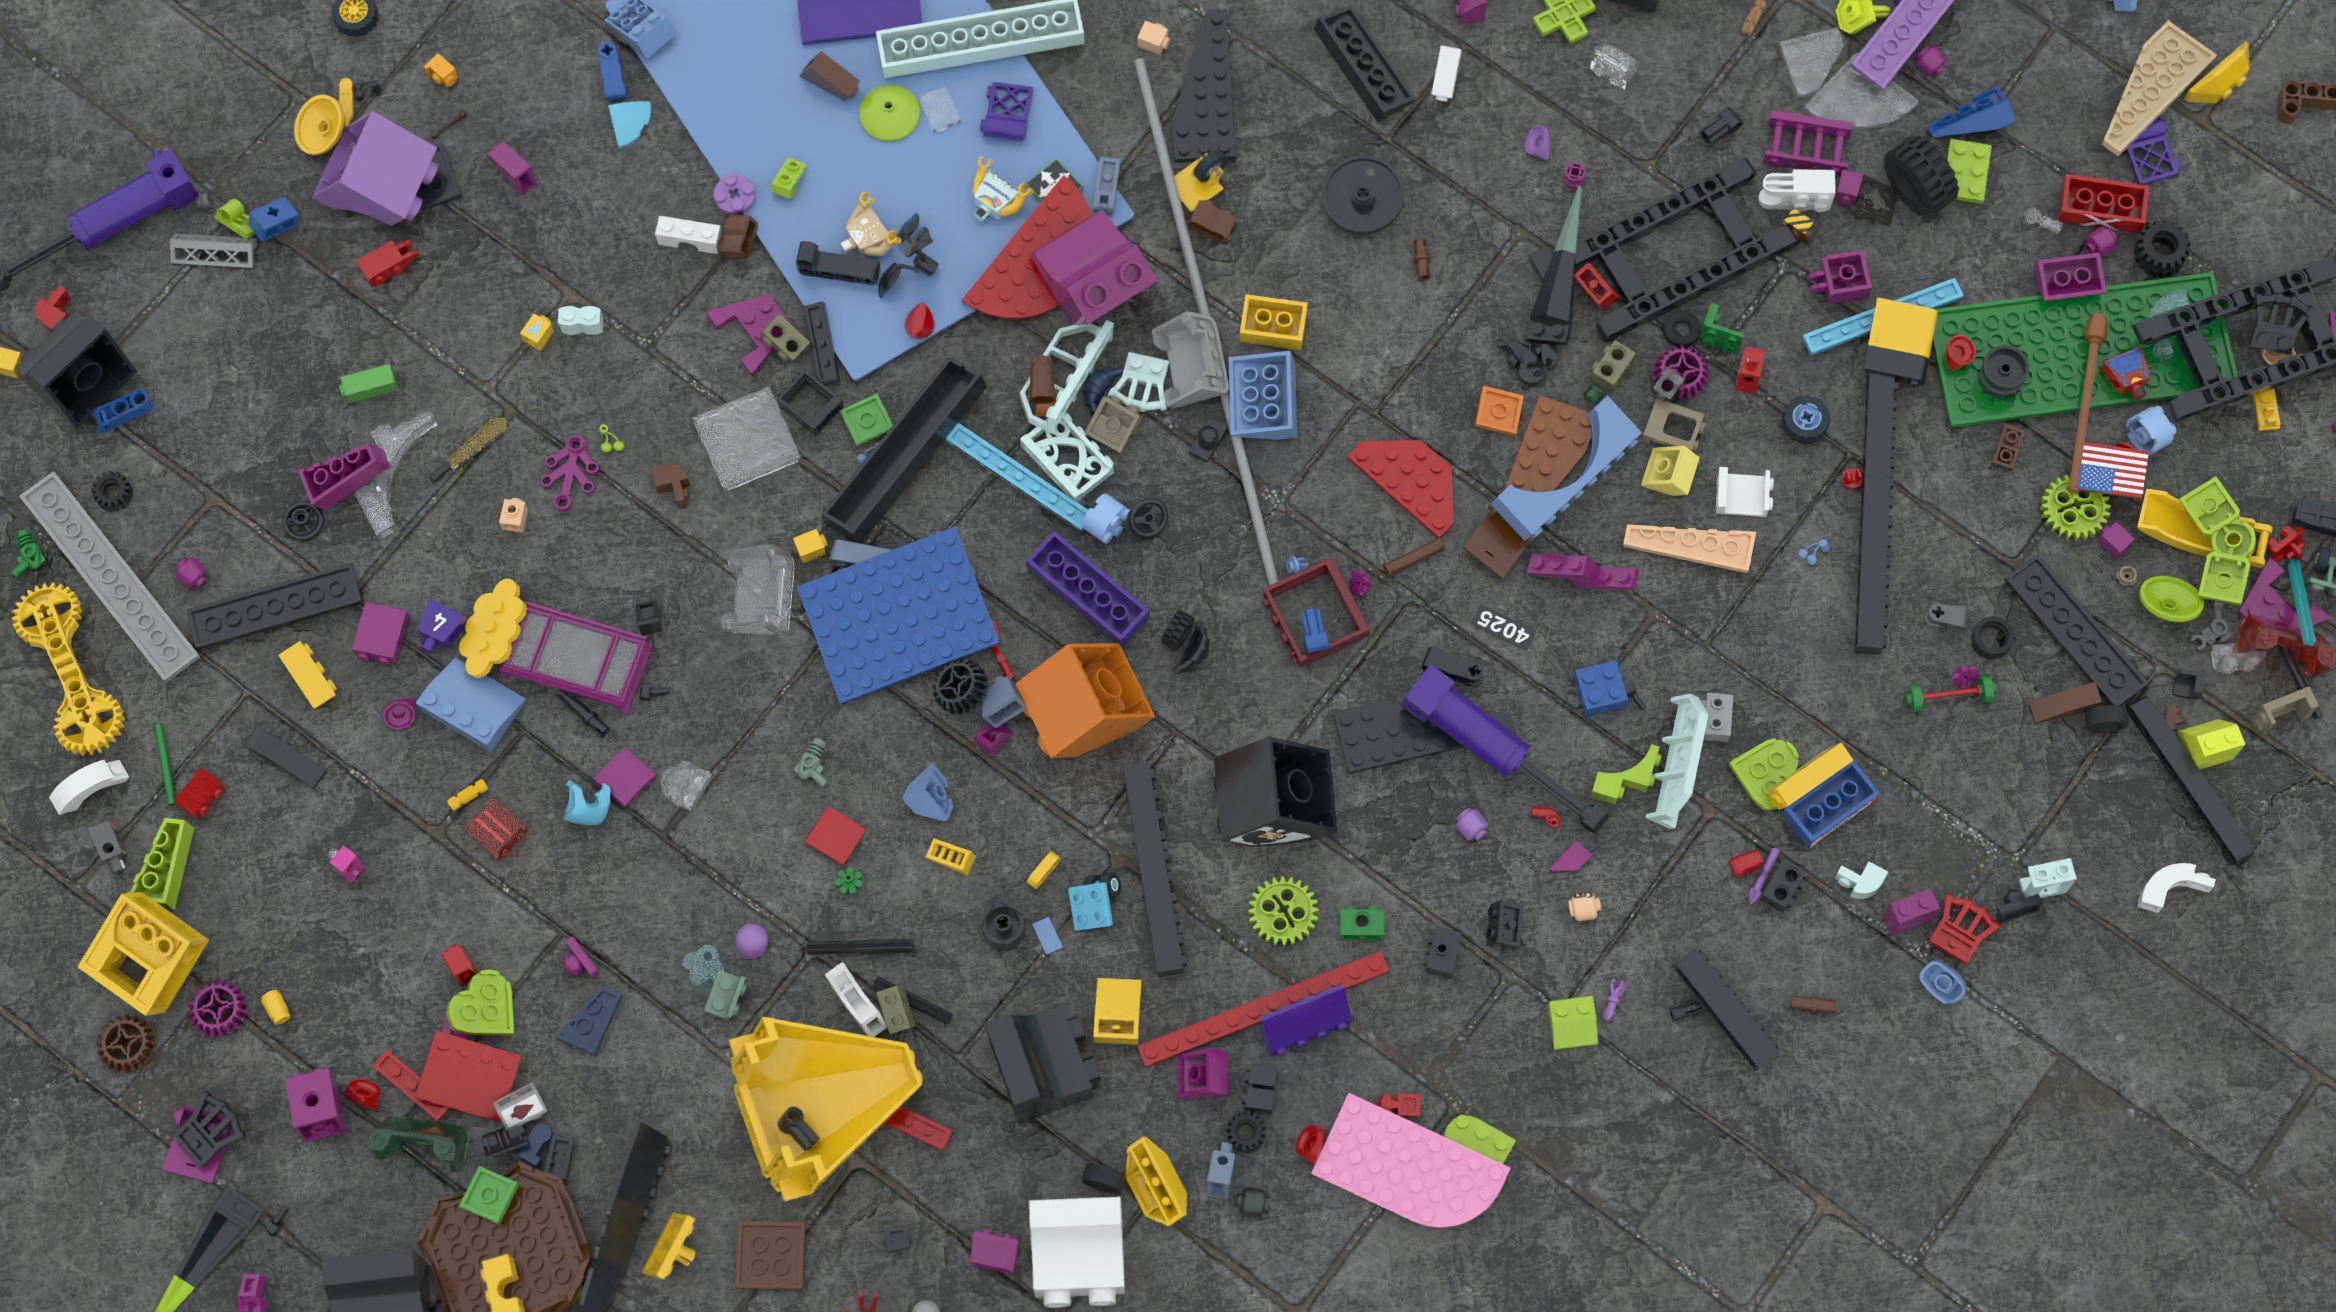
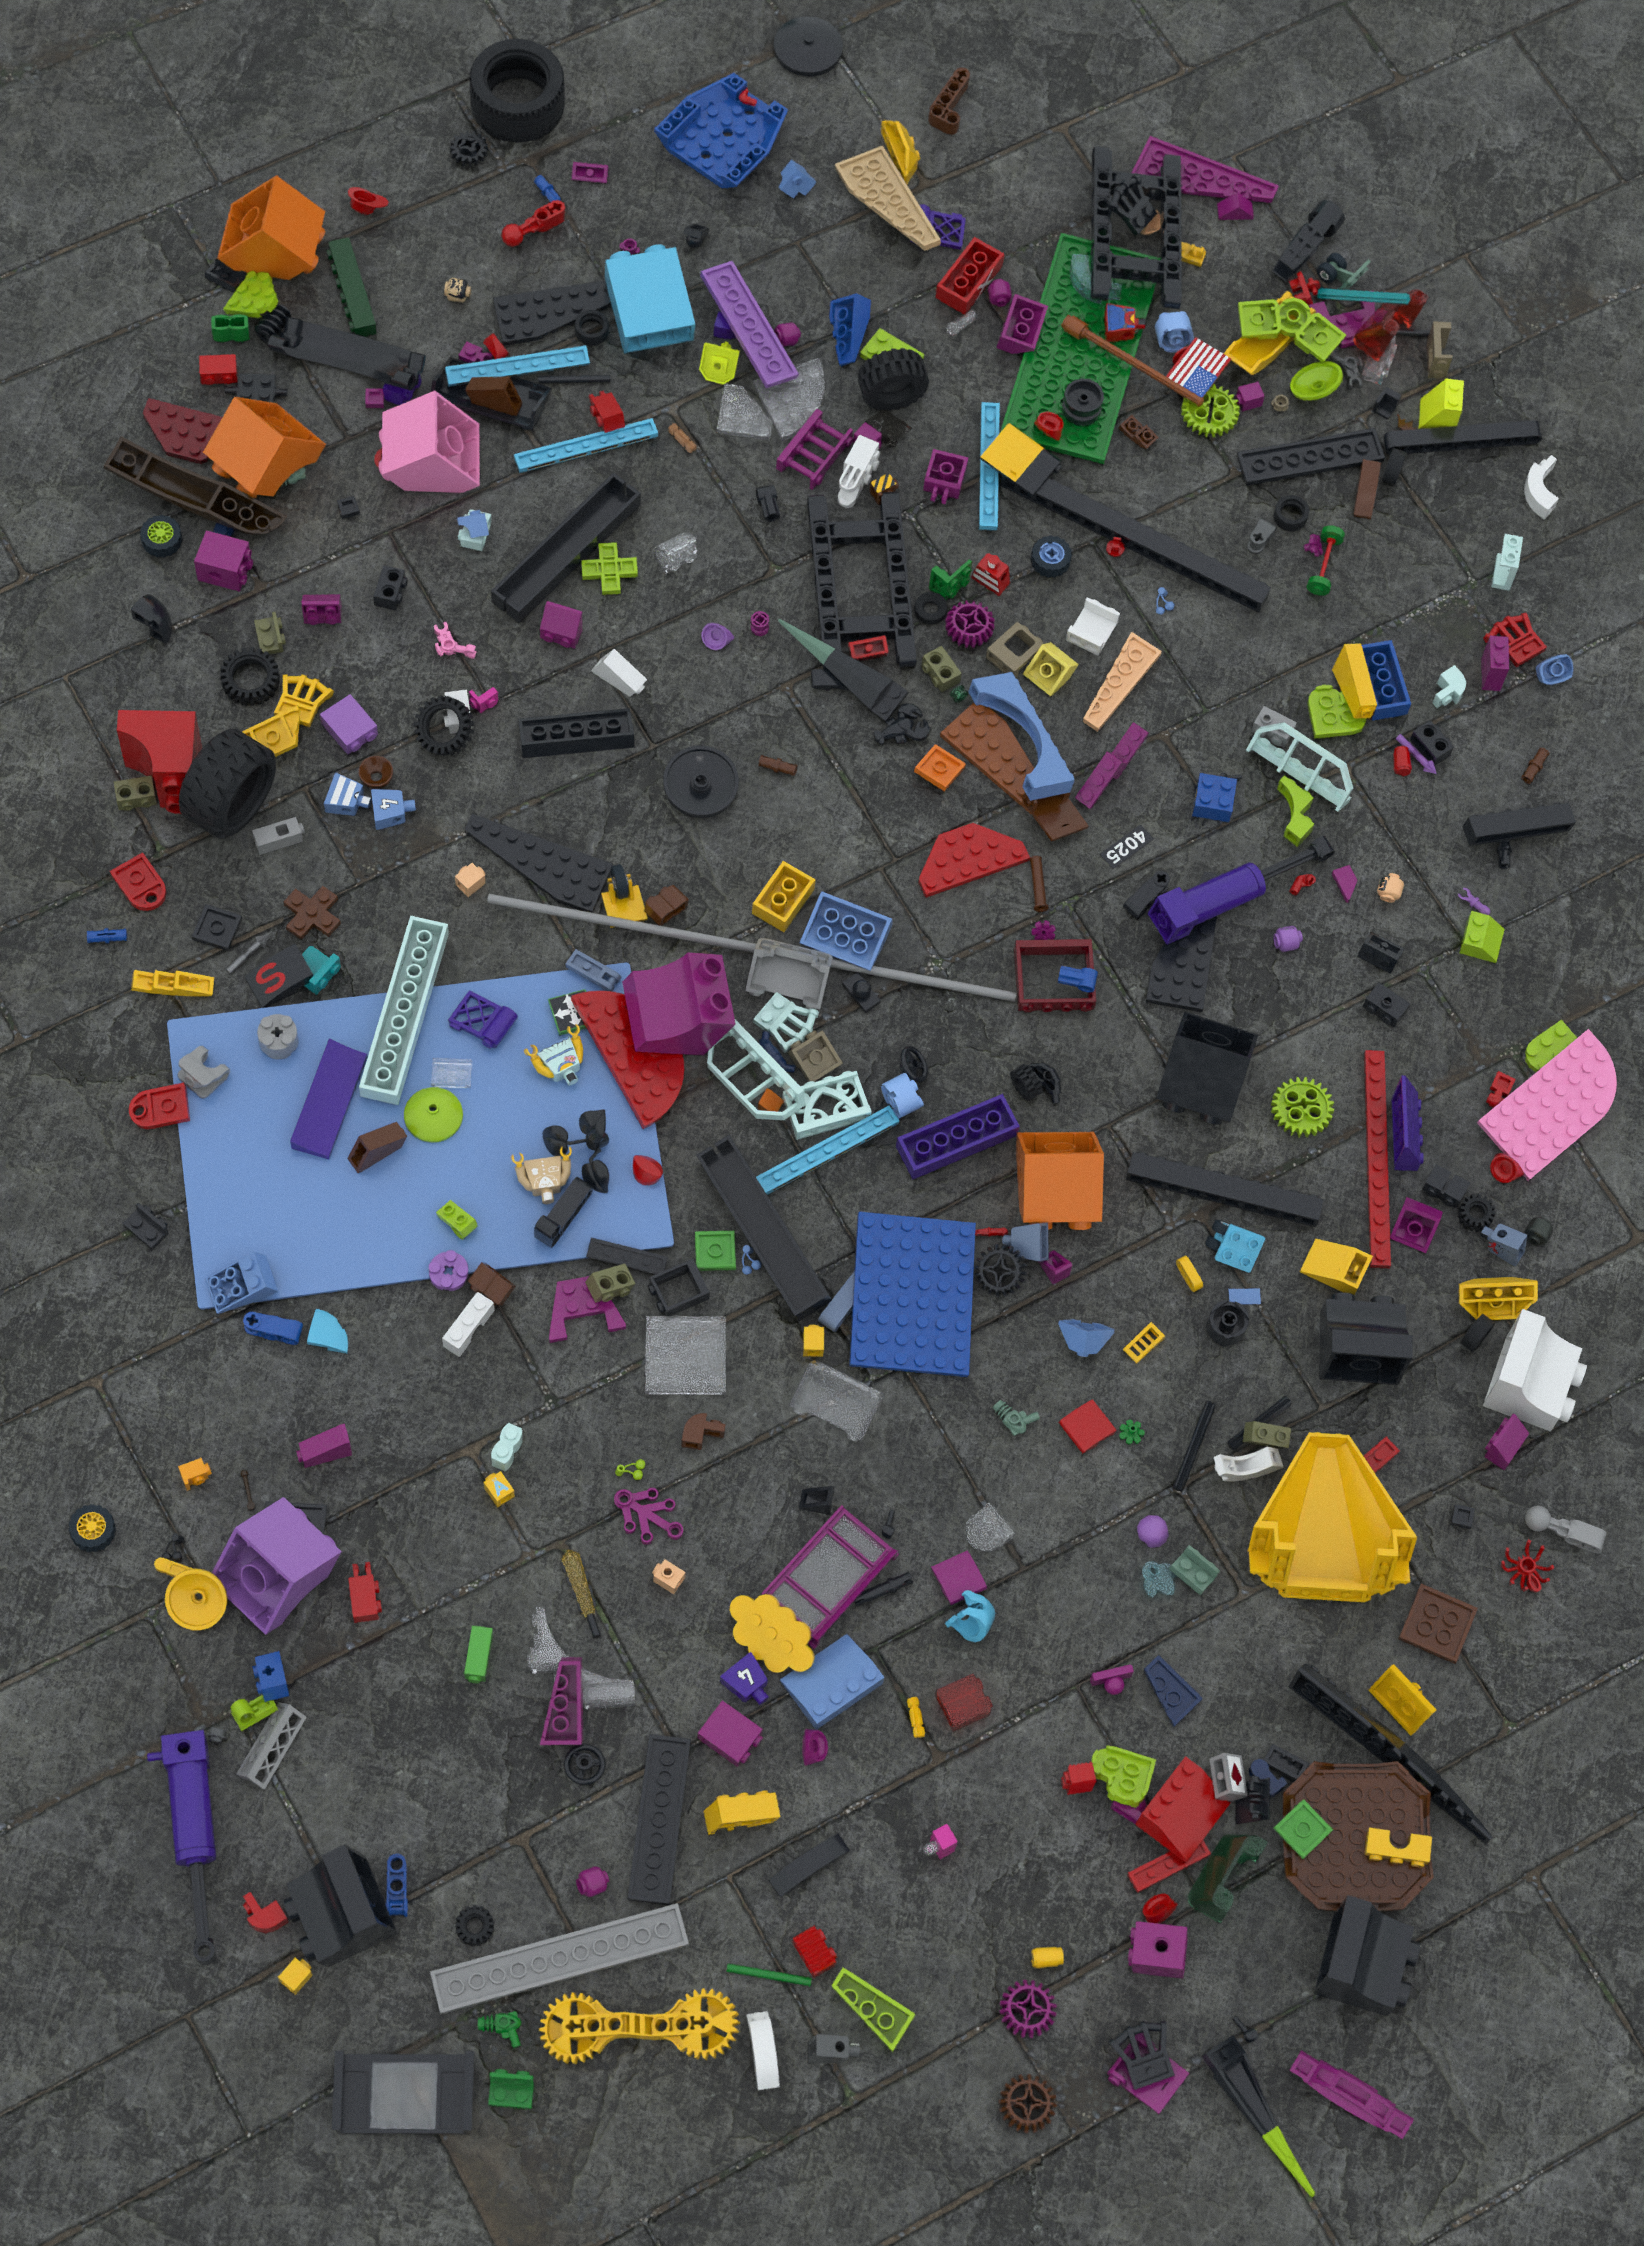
camera: 75 degrees left, 5 degrees down
(151, 938) = (961, 2038): yellow piece -> none
(797, 1128) = (1335, 1555): black piece -> none
(1041, 381) = (756, 1090): reddish brown plant -> none
(1296, 565) = (1007, 973): medium blue plate -> none
(1351, 931) = (1342, 1044): green brick -> none
(1668, 375) = (987, 625): brick -> none
(2017, 906) = (1513, 594): black tile -> none
(2168, 235) = (1026, 244): black tyre -> none

